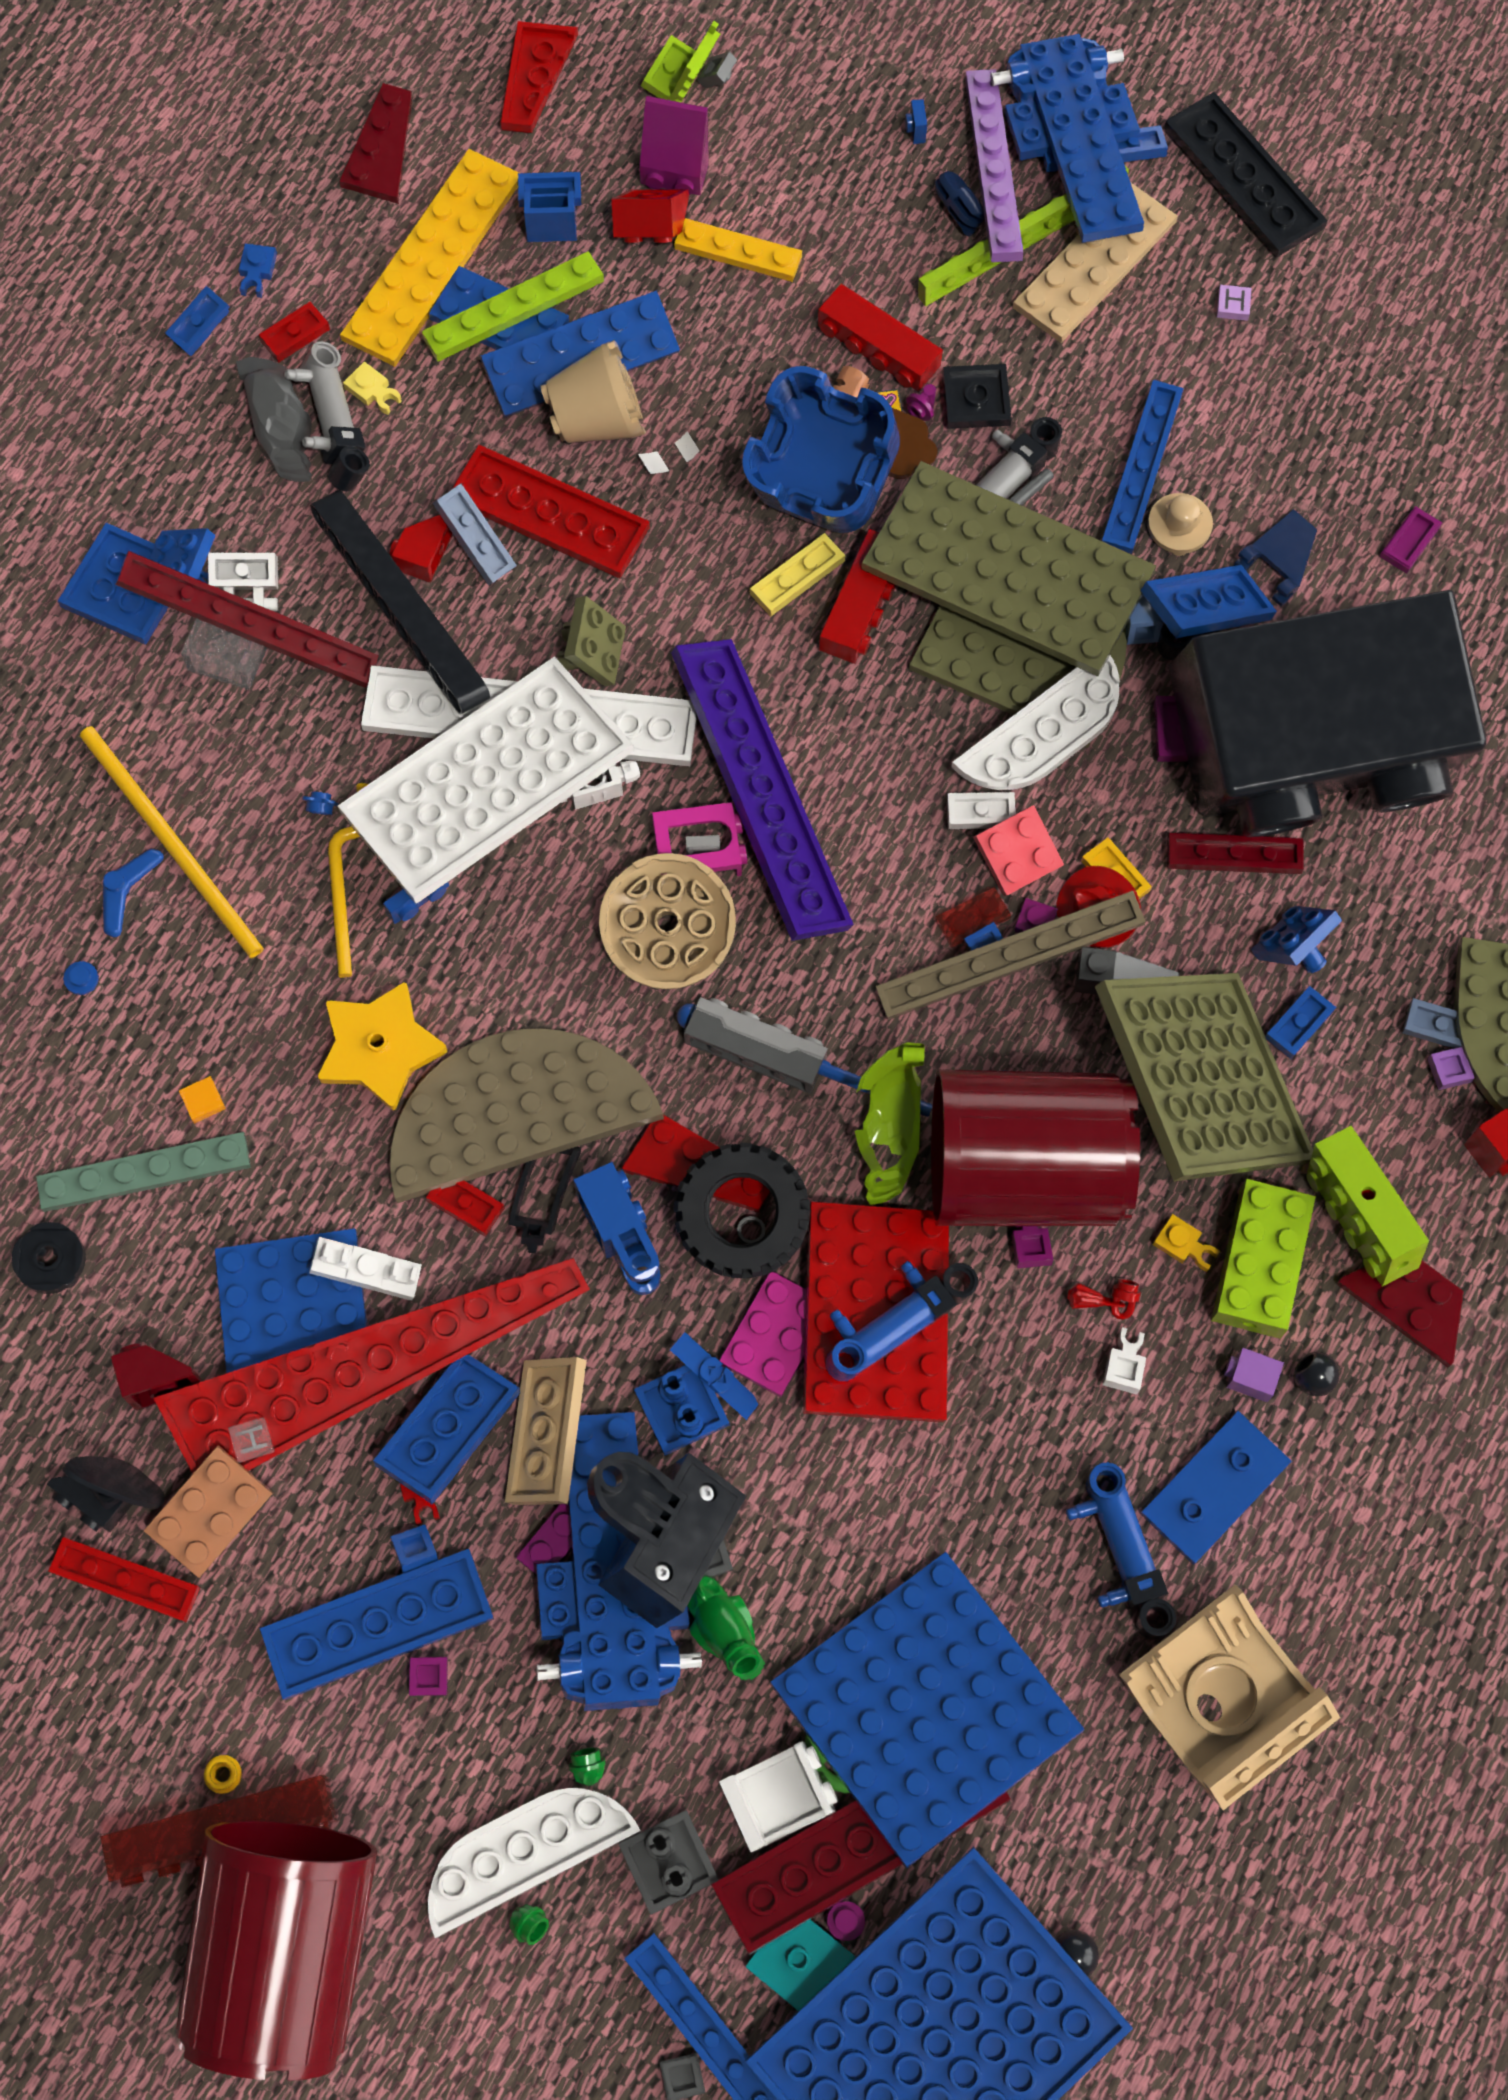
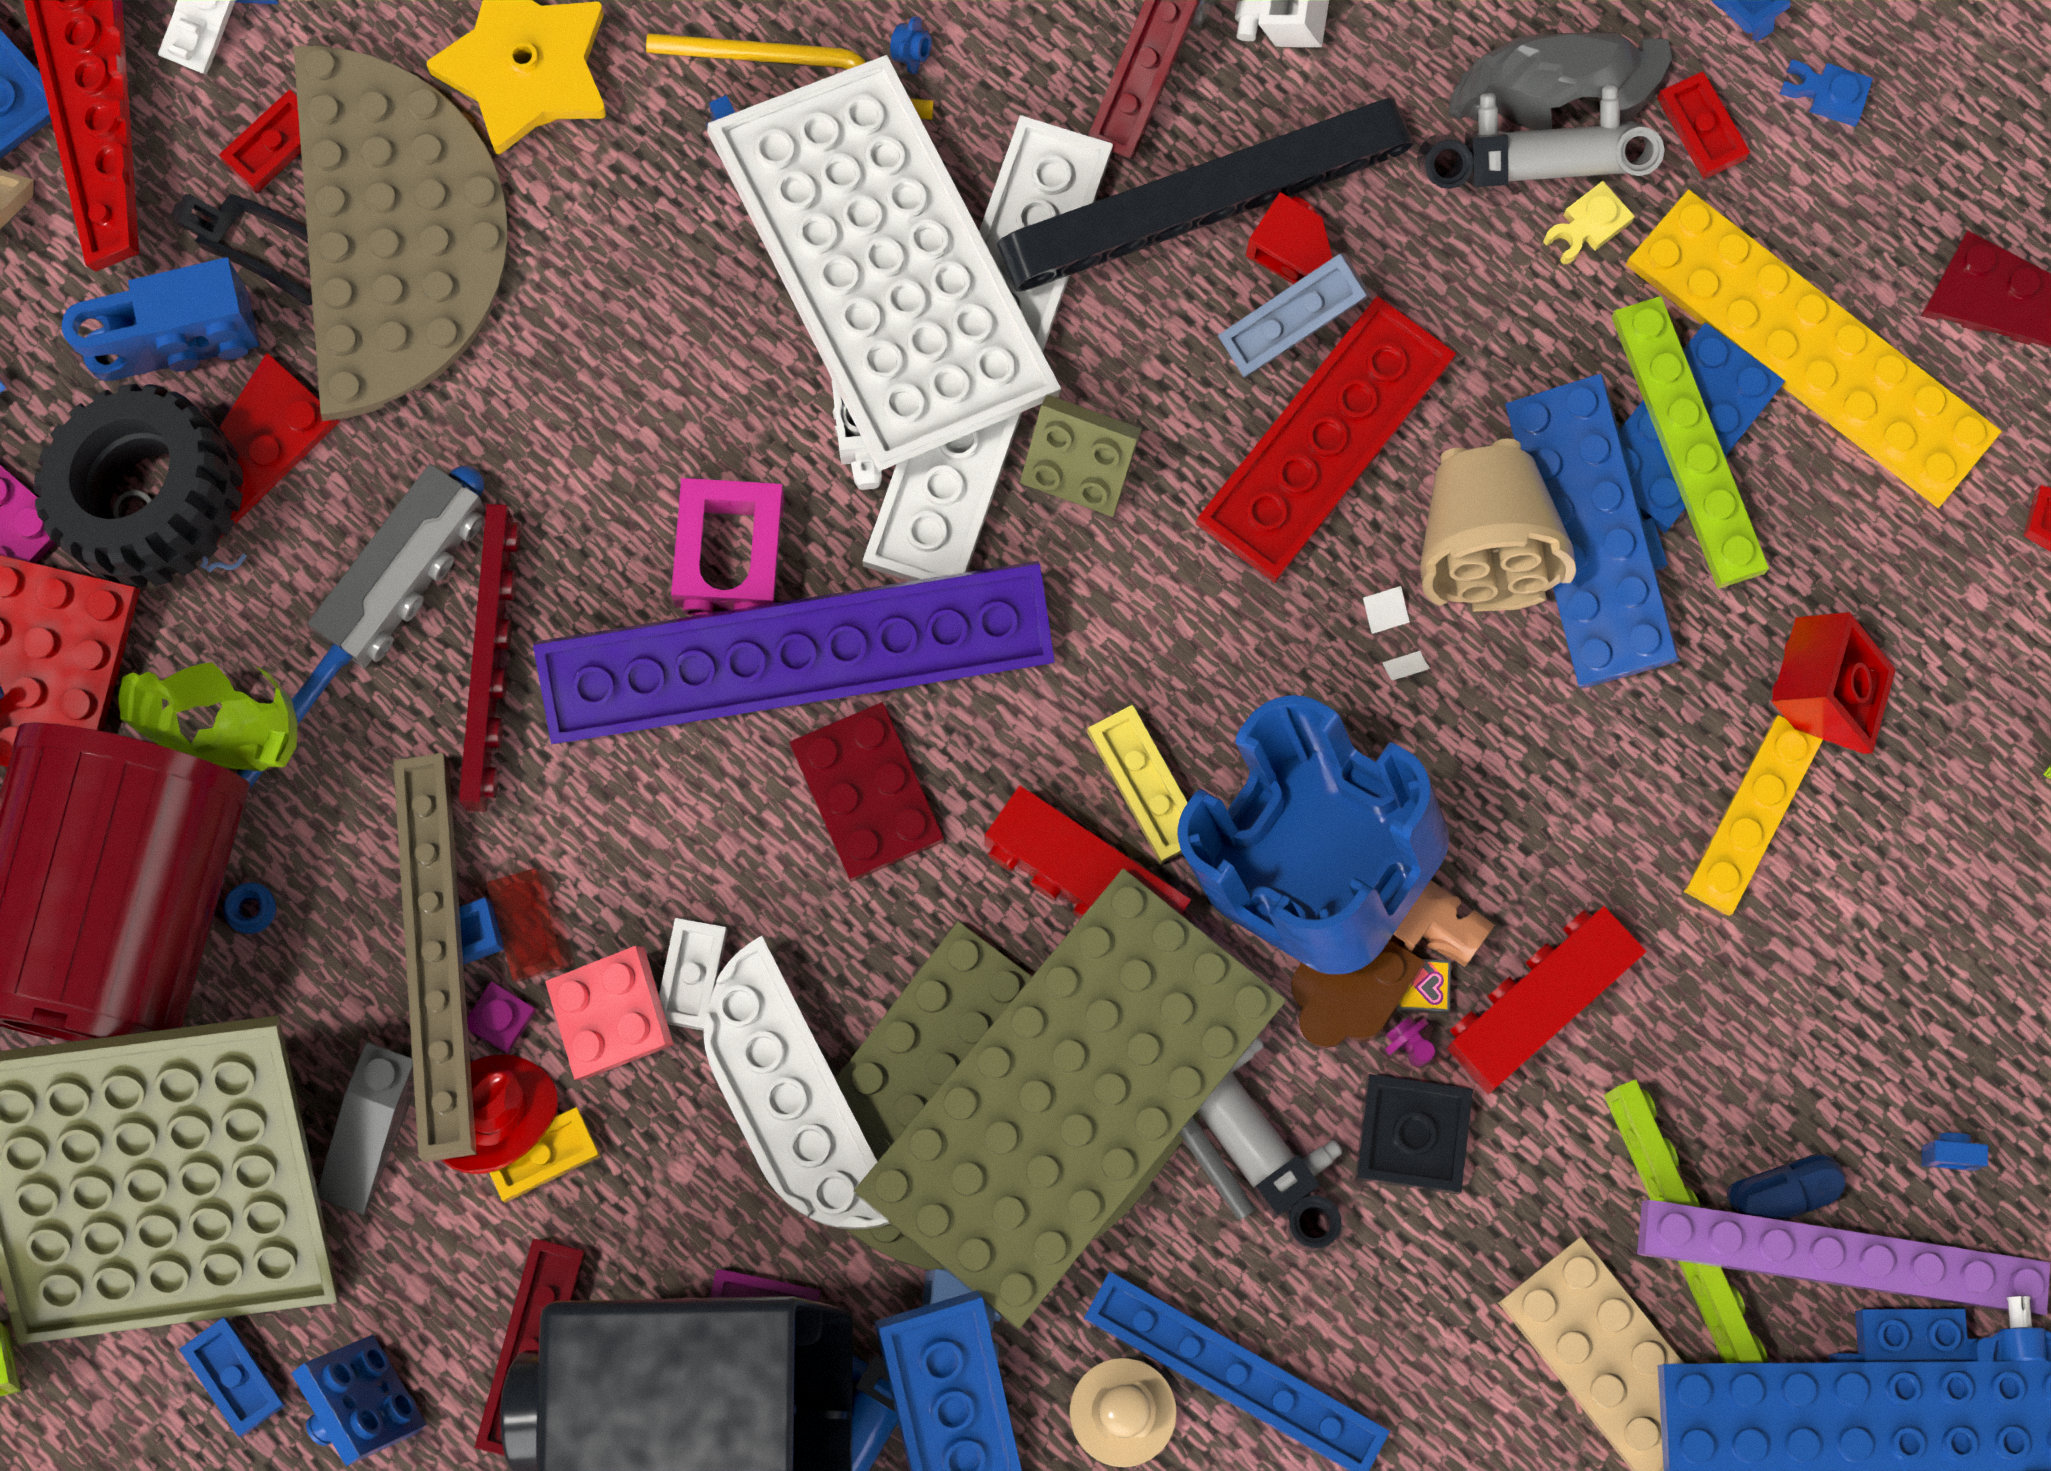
camera: 100 degrees right, 5 degrees up
(550, 205) = (1870, 528): blue plate -> none
(639, 901) = (579, 441): tan brick -> none
(674, 145) = (1934, 732): magenta slope -> none
(702, 844) = (720, 552): light grey tile -> none
(816, 973) = (487, 679): none -> dark red plate
(838, 735) = (866, 792): none -> dark red plate

